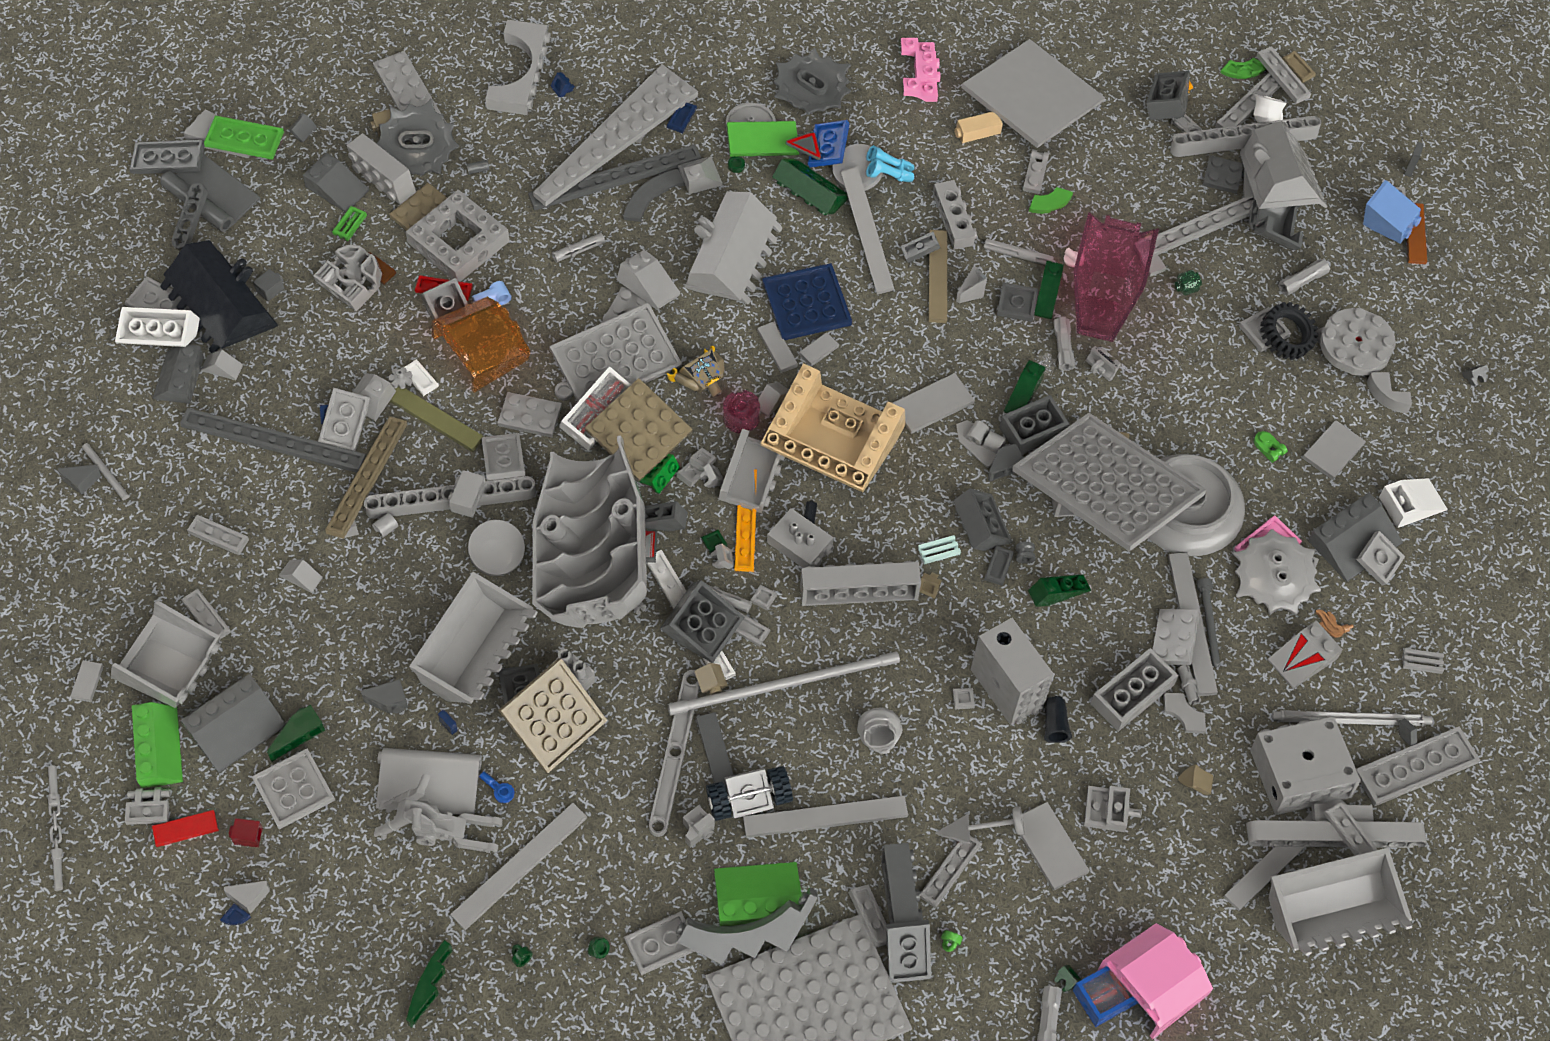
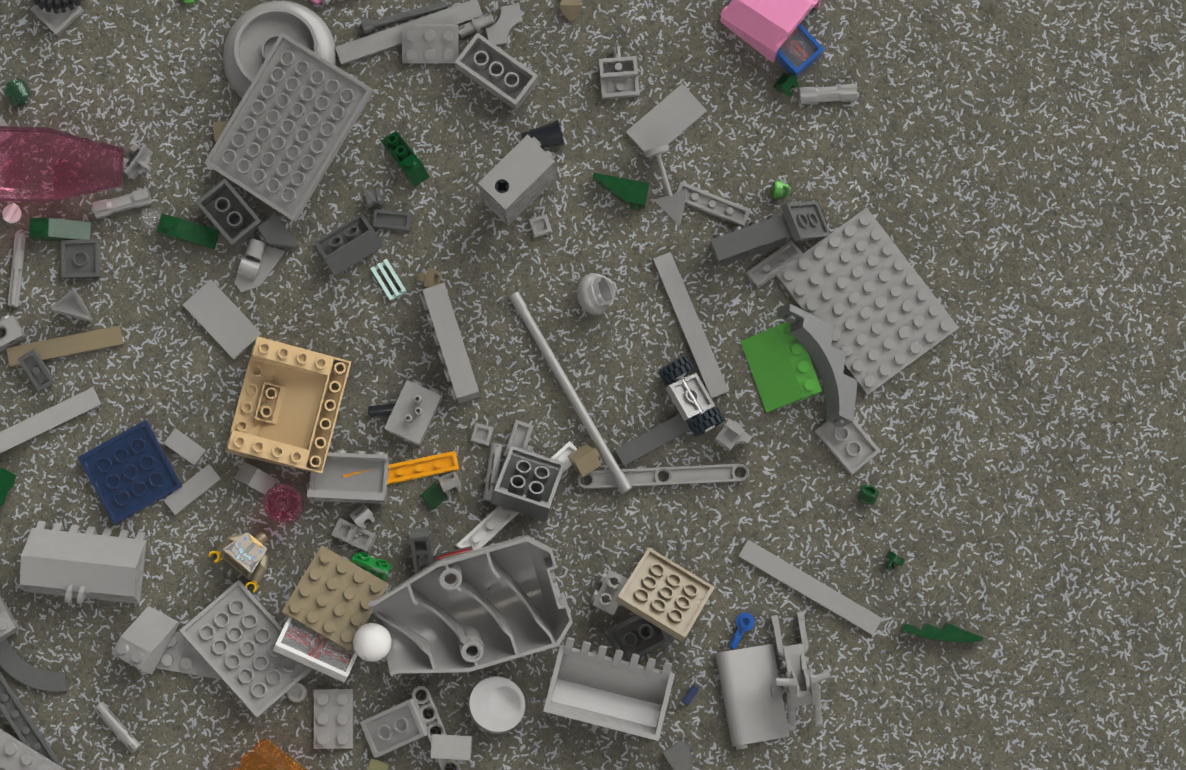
camera: 100 degrees left, 20 degrees up
(586, 444) = (372, 642): none -> white helmet
(981, 786) = (628, 191): none -> dark green slope

